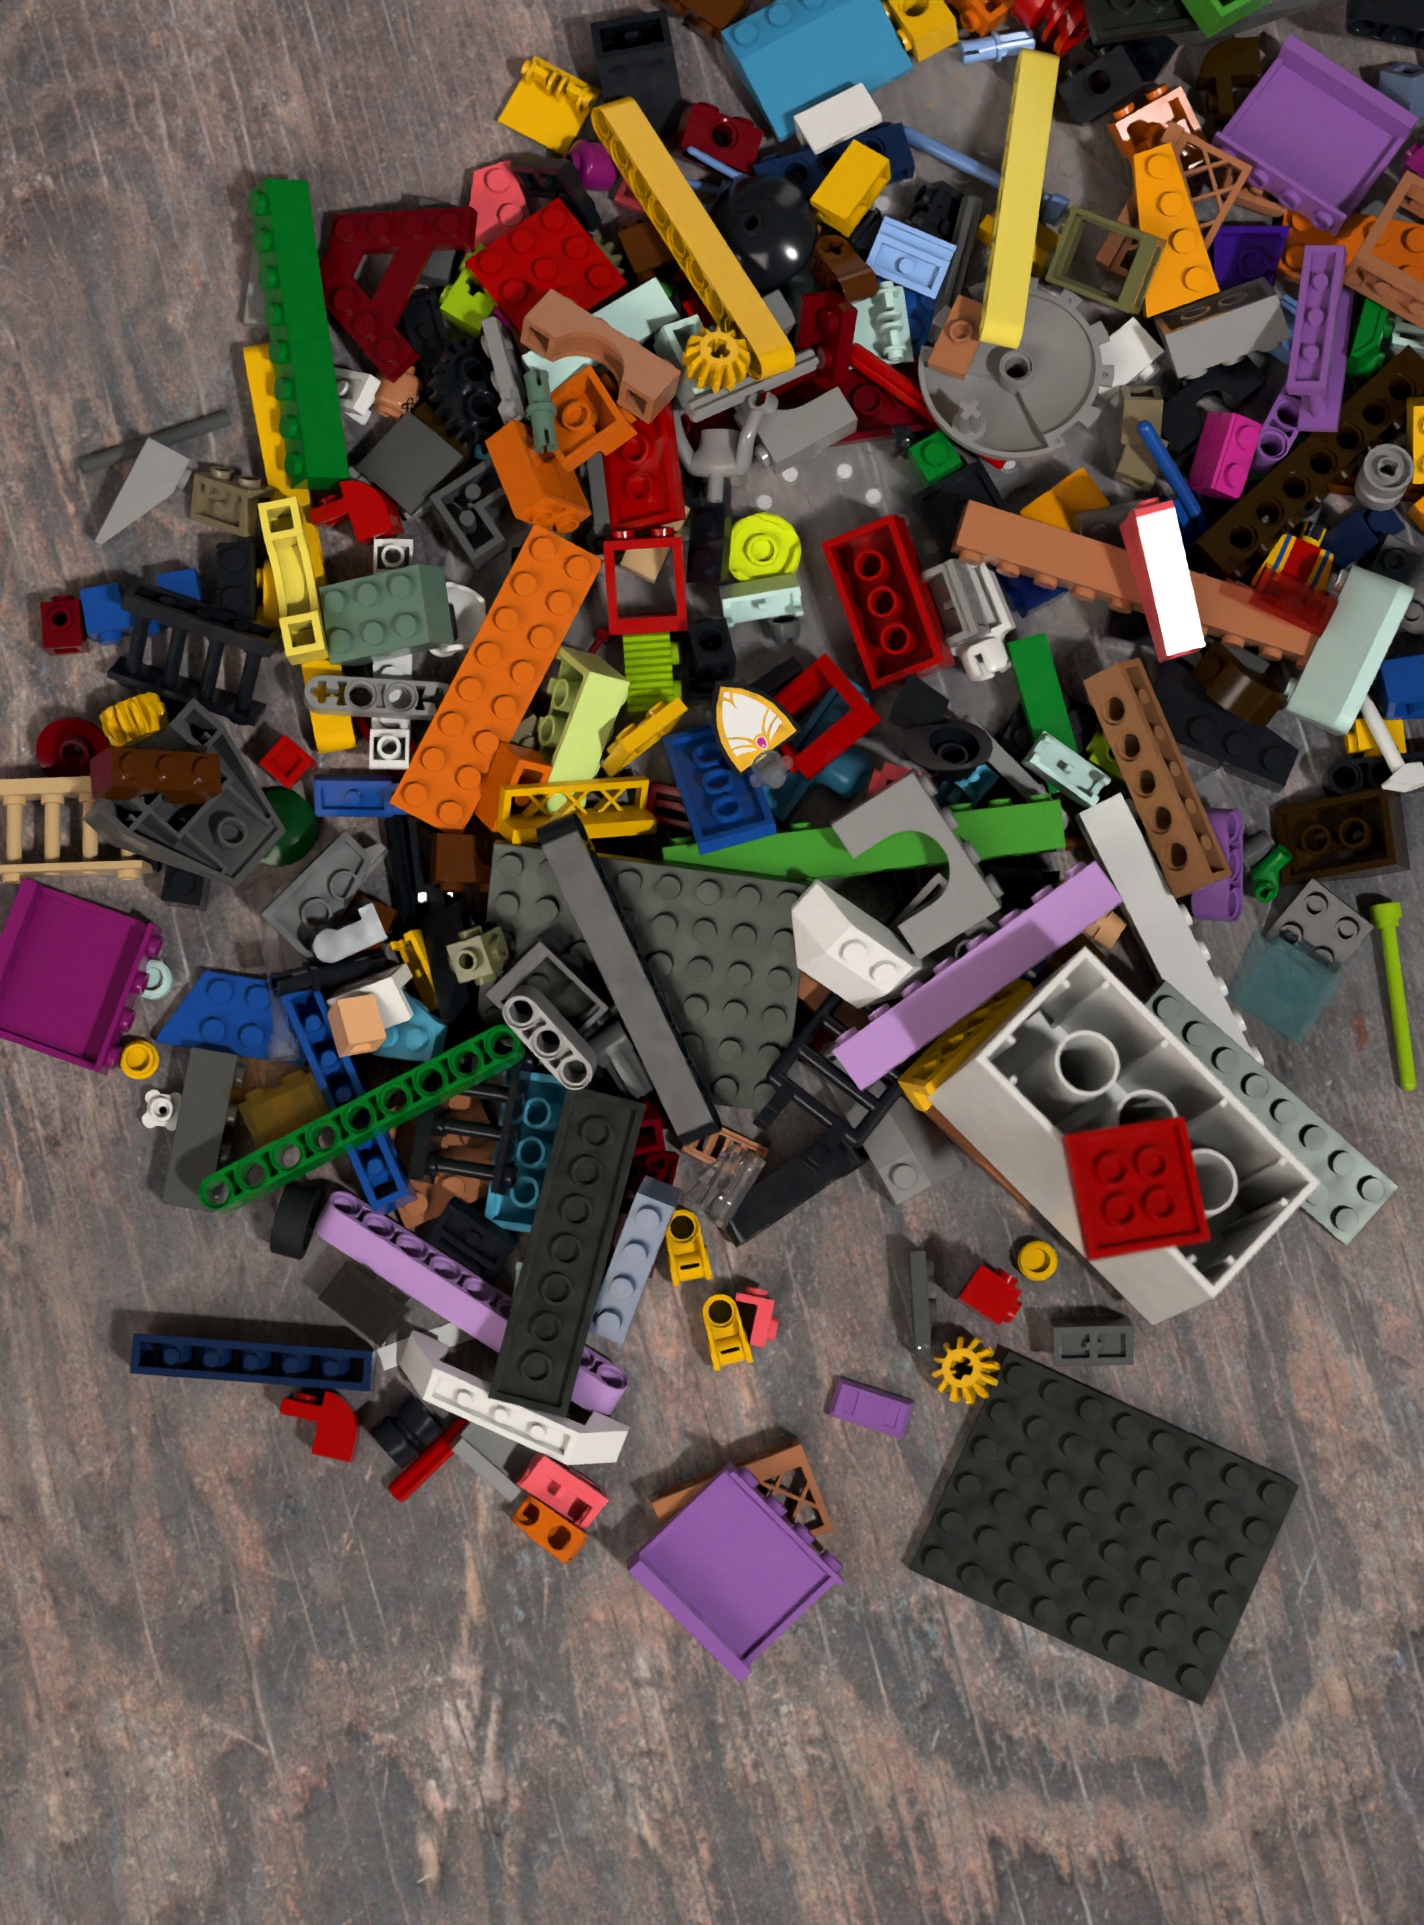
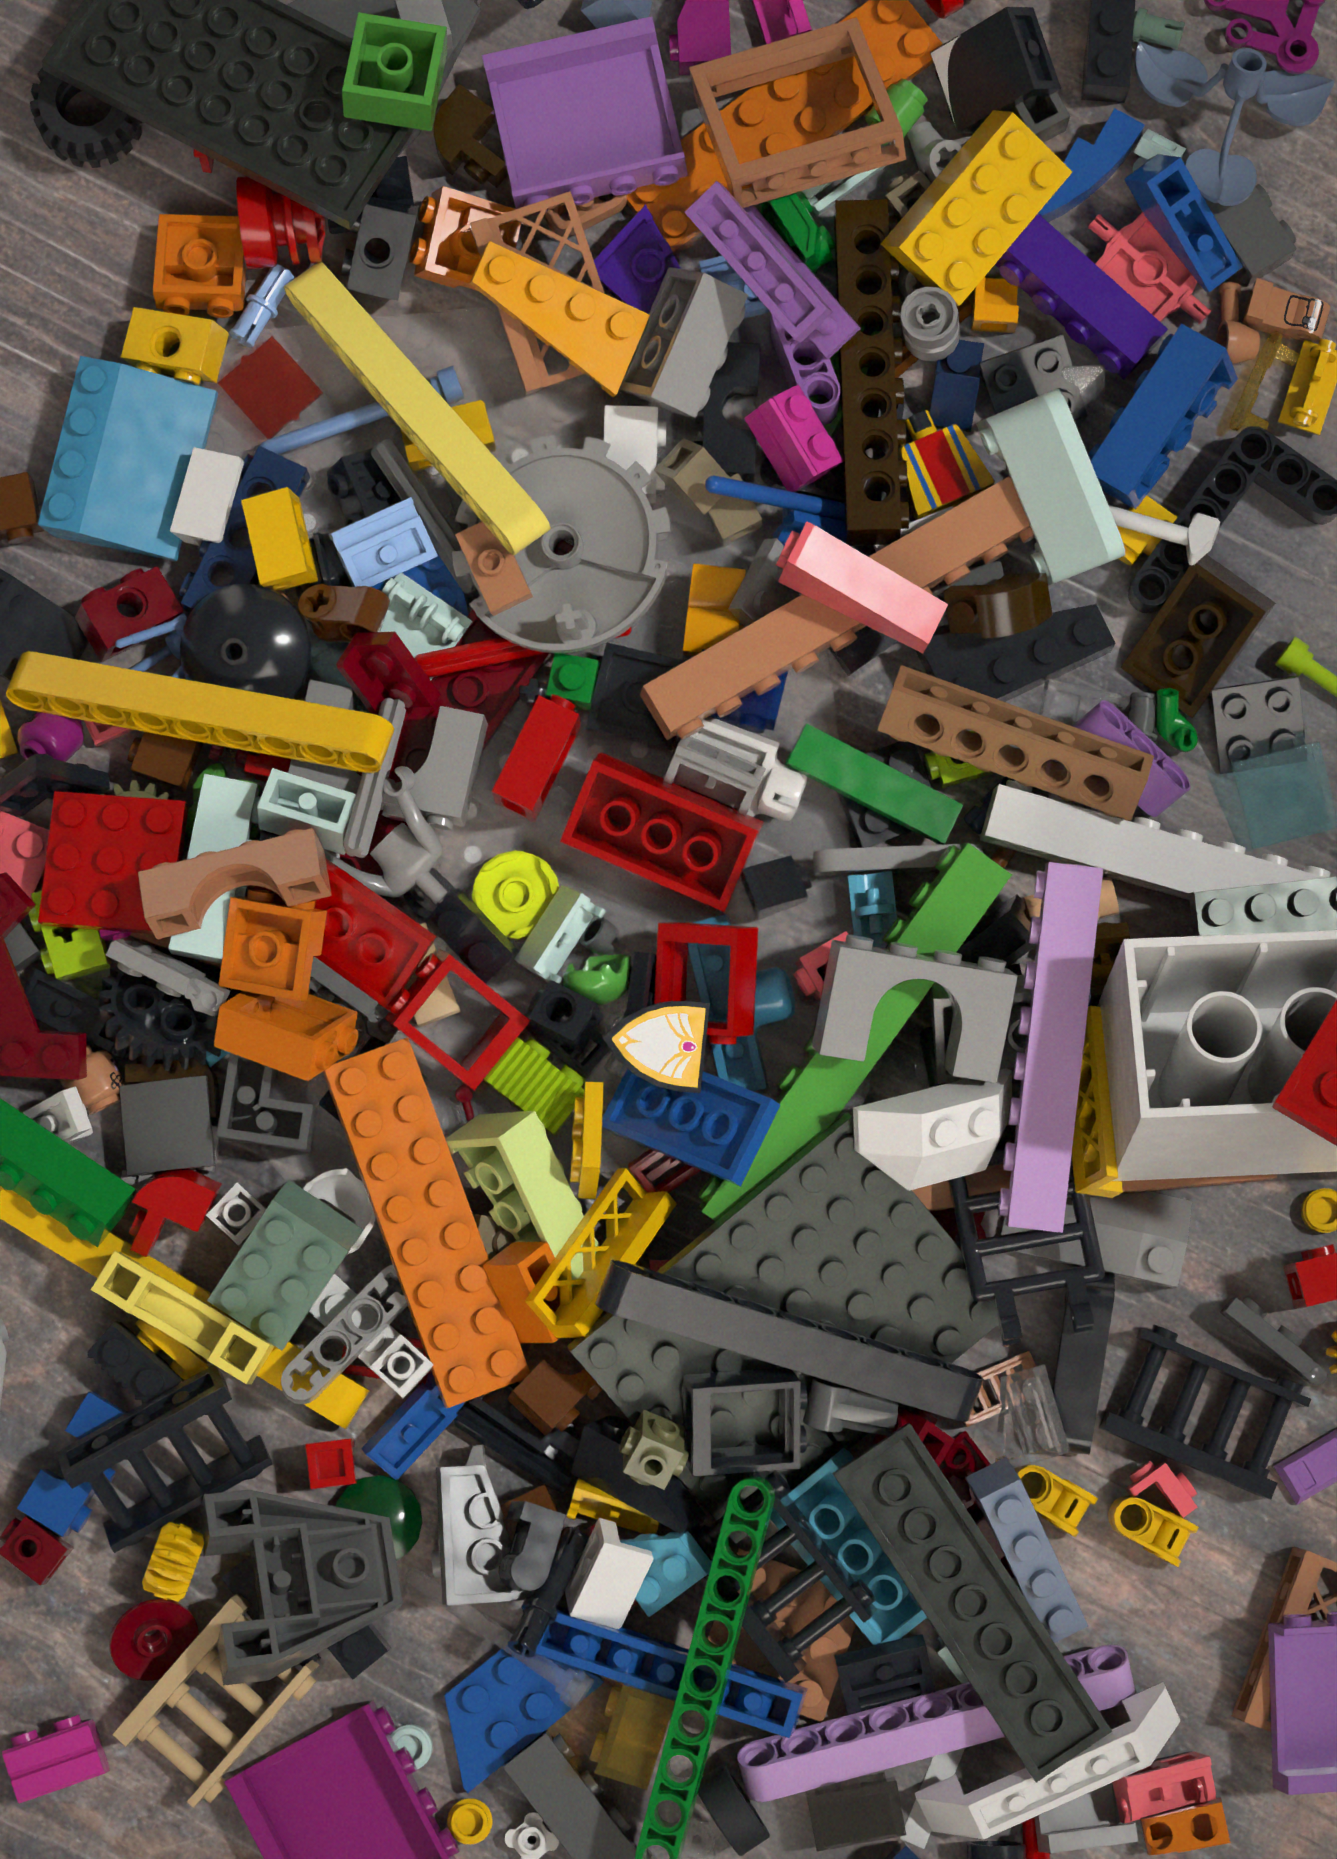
camera: 50 degrees left, 0 degrees up
(133, 772) = (237, 1599): reddish brown arch -> none
(227, 500) = (56, 1309): dark tan bracket -> none
(356, 1025) = (617, 1609): light nougat panel -> none
(541, 411) = (234, 975): sand green pin -> none
(553, 1056) = (798, 1465): light grey beam -> none
(716, 359) = (325, 805): yellow gear -> none
(755, 654) = (601, 978): none -> bright green hair
(770, 769) = (719, 1060): clear plate -> none
(808, 1329) = (1170, 1438): none -> black fence
(863, 480) = (537, 757): none -> red window
(947, 99) = (270, 388): none -> clear red piece
(947, 749) = (834, 894): black piece -> none
(1066, 770) = (939, 811): light aqua hinge -> none
(1140, 273) = (578, 367): olive window -> none
(1293, 600) = (974, 495): clear red brick -> none

